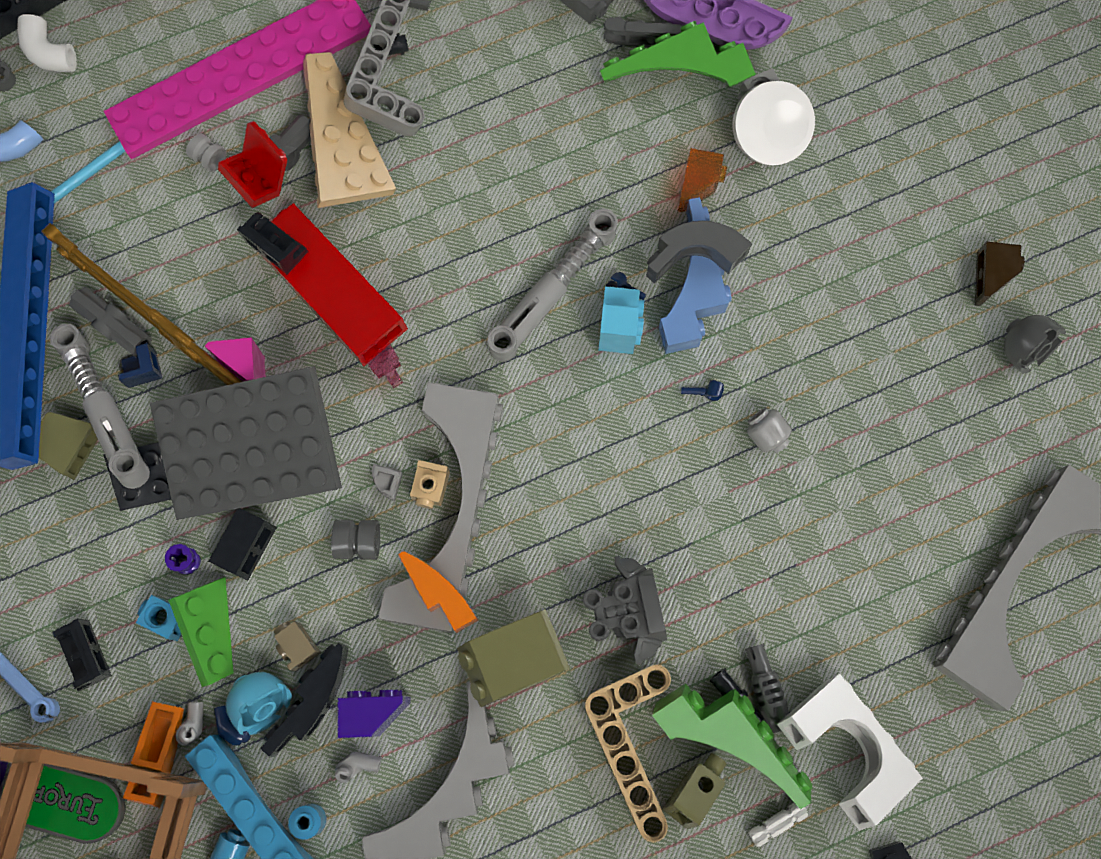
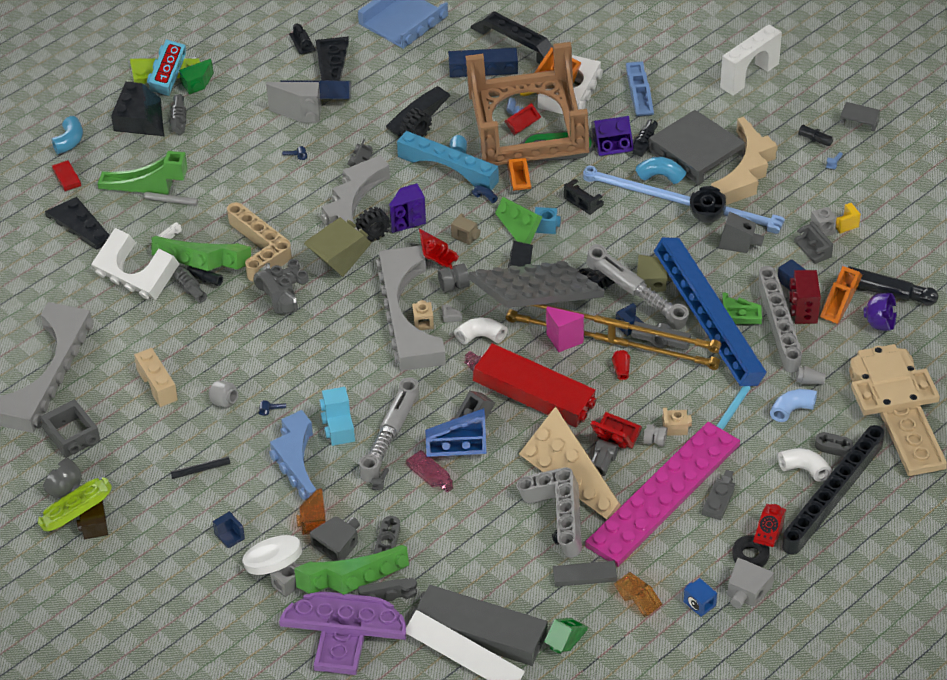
camera: 160 degrees right, 30 degrees down
(169, 166) = (676, 421): none -> tan brick
(175, 41) = (719, 496): none -> dark grey hinge
(179, 551) = (549, 245): dark purple bush -> none
(190, 290) = (621, 363): none -> red cone
(192, 726) = (505, 186): light grey arm -> none
(255, 701) = (475, 200): medium azure cylinder -> none
(272, 242) = (575, 382): black hinge -> none
(316, 817) = (421, 167): dark azure brick -> none
(318, 691) = (444, 209): black slope -> none
(356, 426) = (480, 327): none -> white cylinder
(359, 608) = (437, 250): none -> red hinge
(427, 274) = (473, 402): none -> dark grey slope
(438, 592) = (392, 257): orange slope -> none
(438, 701) = (370, 217): none -> black tyre
(469, 225) = (458, 436): none -> blue wedge
(522, 204) = (430, 471): none -> clear pink hinge
(596, 203) = (378, 483): none -> dark grey hand
(617, 124) = (385, 534): none -> dark grey beam
(620, 281) = (348, 444): dark blue hand -> none
(681, 128) = (335, 538): none -> dark grey torso
(688, 803) = (216, 224): olive torso -> none
(698, 238) = (298, 460): dark grey arch -> none
(817, 194) = (228, 529): none -> dark blue panel
(830, 317) = (200, 467): none -> black bar
(868, 514) = (154, 372): none -> tan arch
(982, 452) = (63, 415): none -> dark grey window
(1022, 289) = (74, 504): none -> lime tile

